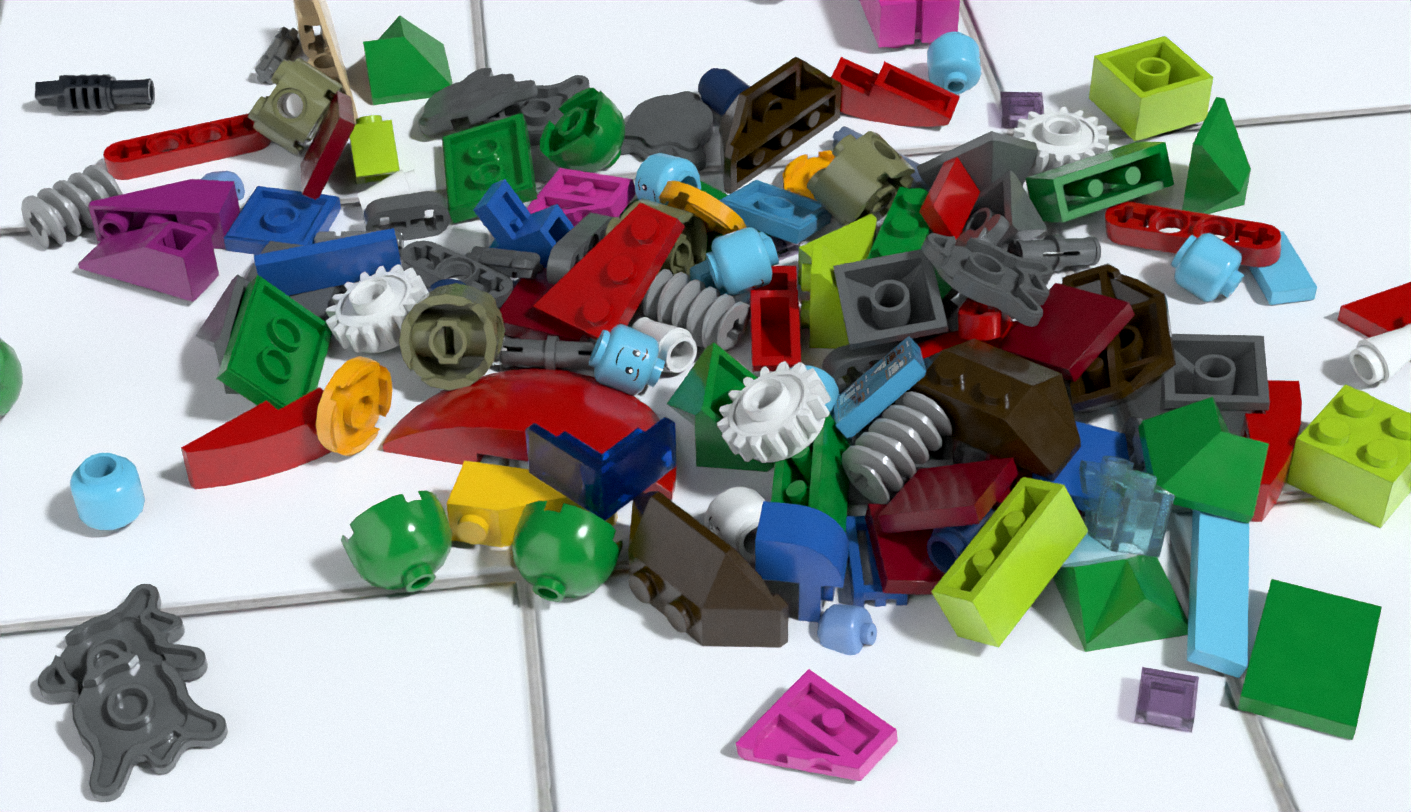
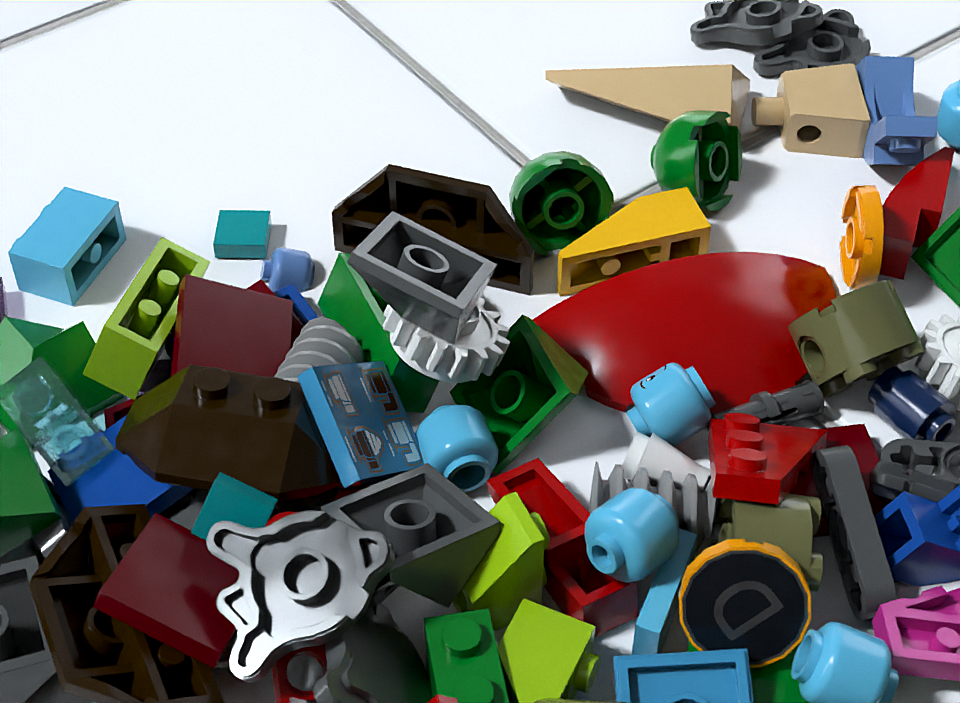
camera: 150 degrees right, 5 degrees up
(190, 519) = (894, 130): none -> medium blue arch
(220, 568) = (817, 111): none -> tan torso
(343, 647) = (662, 90): none -> tan wedge
(603, 480) = (579, 225): clear blue panel -> none
(794, 348) = (422, 275): none -> dark grey slope
(802, 548) = (334, 227): blue brick -> none
(818, 732) = (258, 173): dark pink wing -> none
(873, 677) = (242, 234): none -> teal tile
(1012, 342) = (233, 502): none -> teal tile
(1058, 711) = (67, 246): none -> medium azure brick

